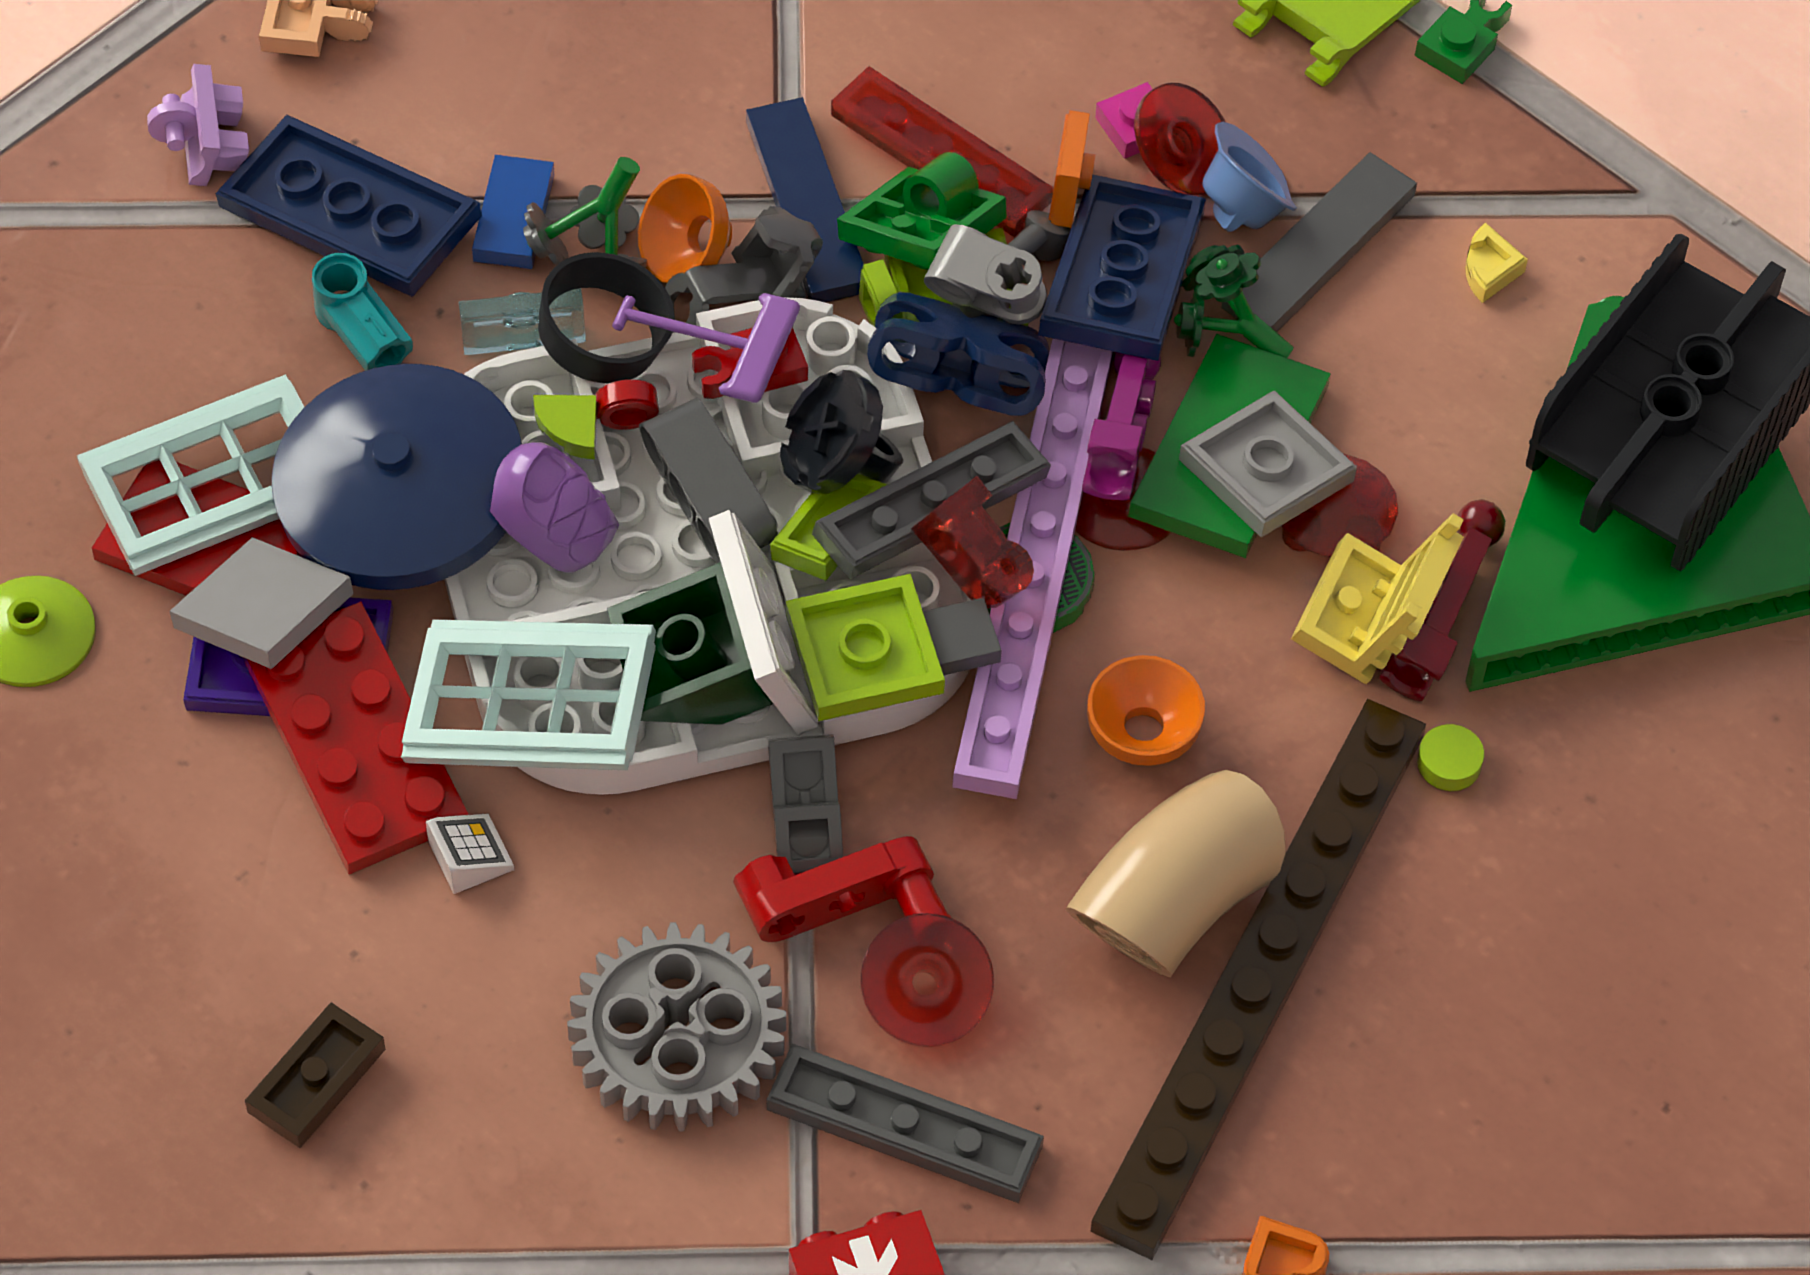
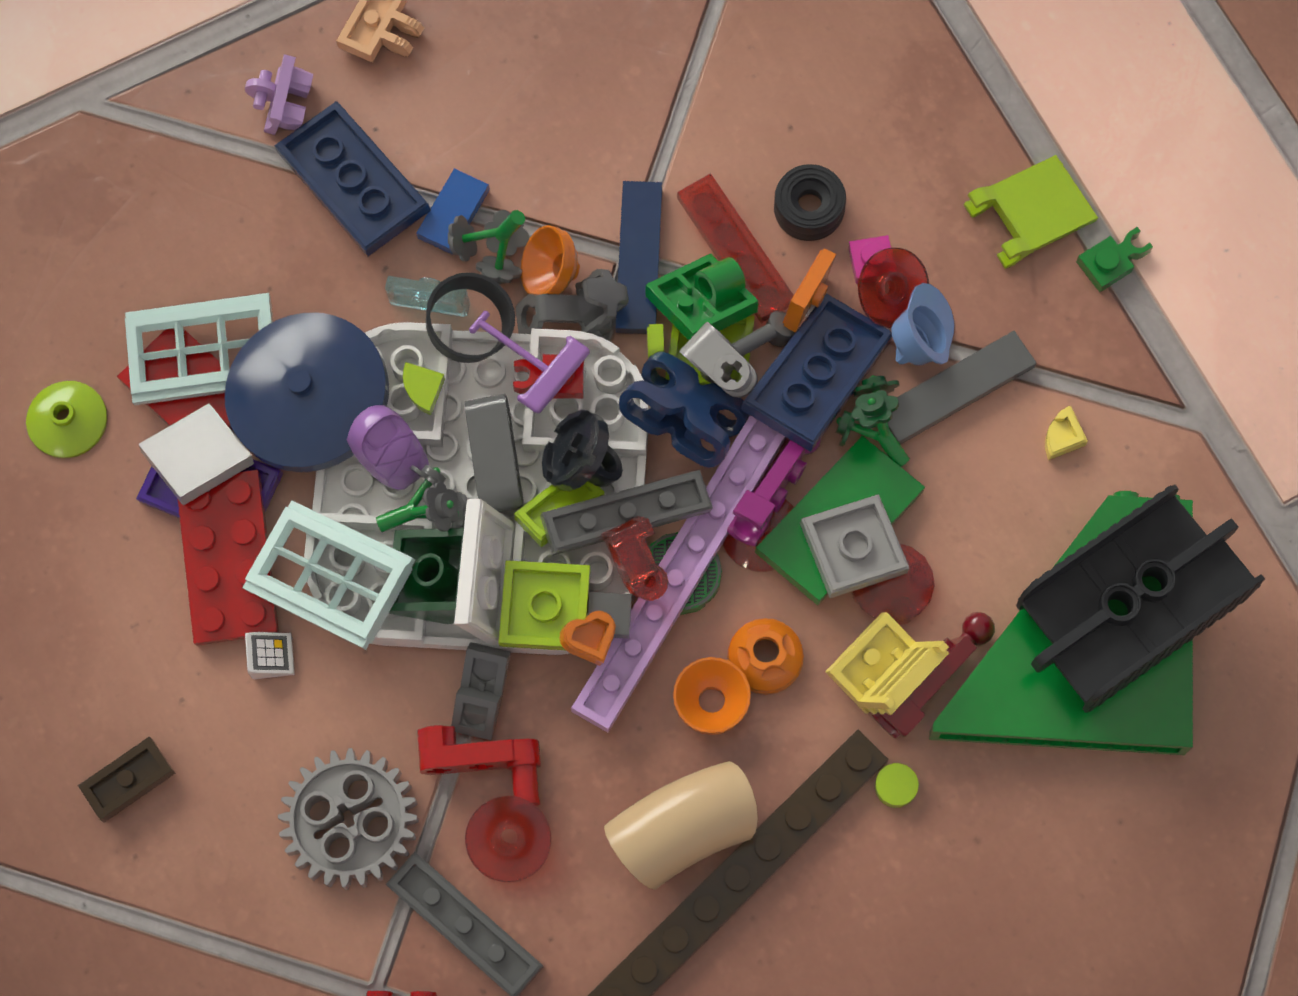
camera: 25 degrees right, 15 degrees up
(360, 314) = (329, 262): teal piece -> none
(626, 404) = (464, 382): red tile -> none
(671, 543) = (442, 504): none -> dark grey plant
(949, 660) = (589, 637): none -> orange tile
(1027, 41) = (809, 224): none -> black tyre
(1216, 665) = (771, 676): none -> orange piece

